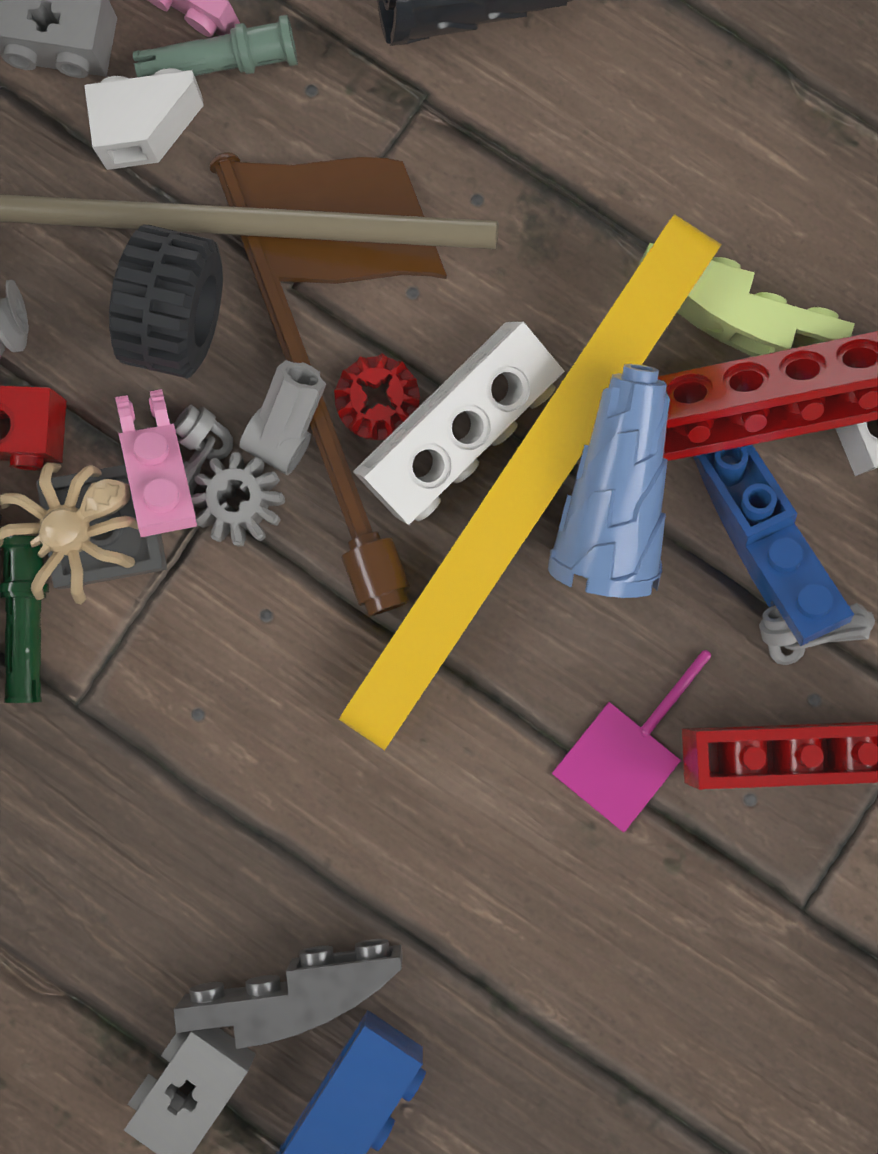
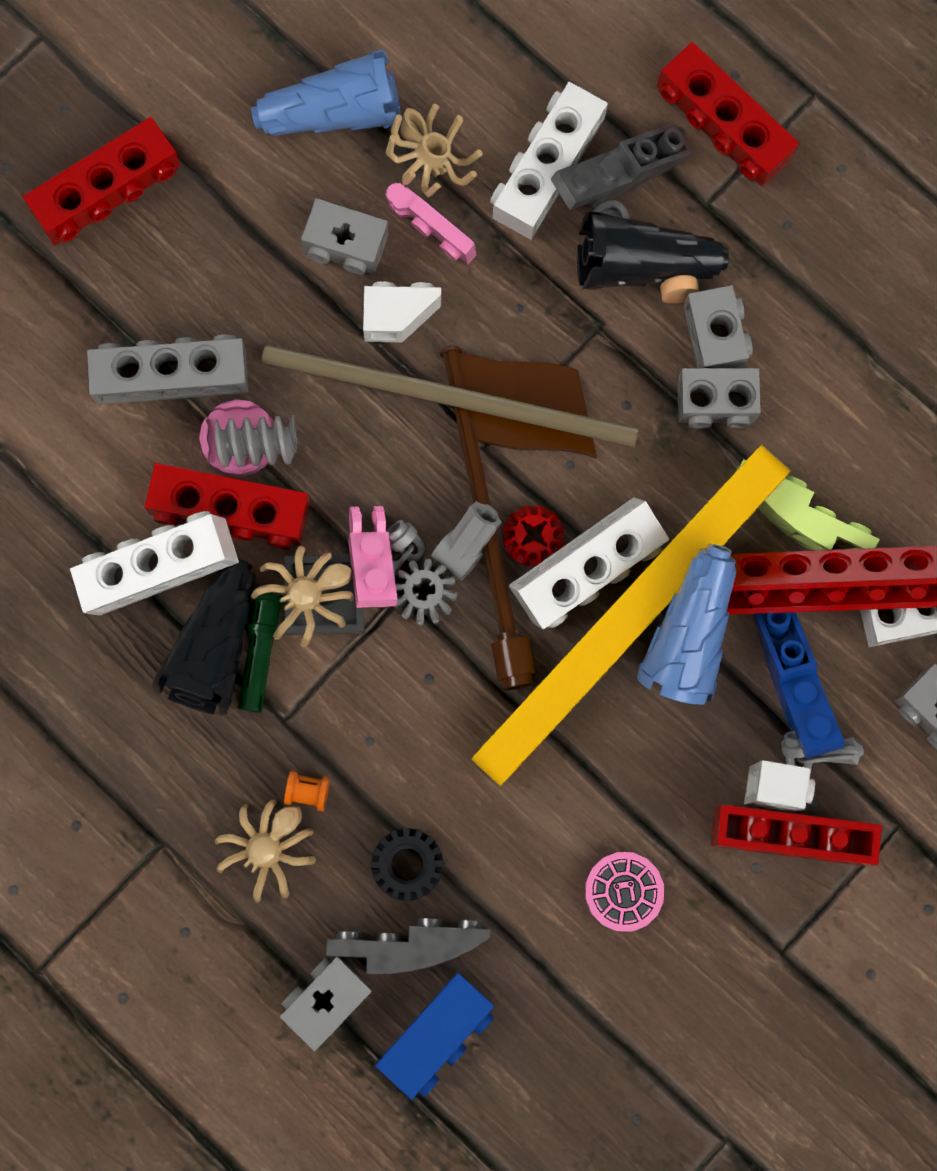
camera: 10 degrees right, 5 degrees down
(76, 889) = (265, 848): none -> tan animal
(118, 800) = (307, 790): none -> orange bush
(165, 300) = (399, 447): black tyre -> none
(240, 49) = (477, 273): sand green pin -> none
(254, 908) = (407, 839): none -> black tyre
(524, 26) = (675, 289): none -> light nougat tile
(577, 865) = (624, 891): none -> tile
(584, 104) = (721, 308): none -> light grey brick
(595, 150) = (716, 386): none -> light grey brick
(620, 763) = (665, 824): dark pink piece -> none
(771, 692) = (779, 787): none -> white brick

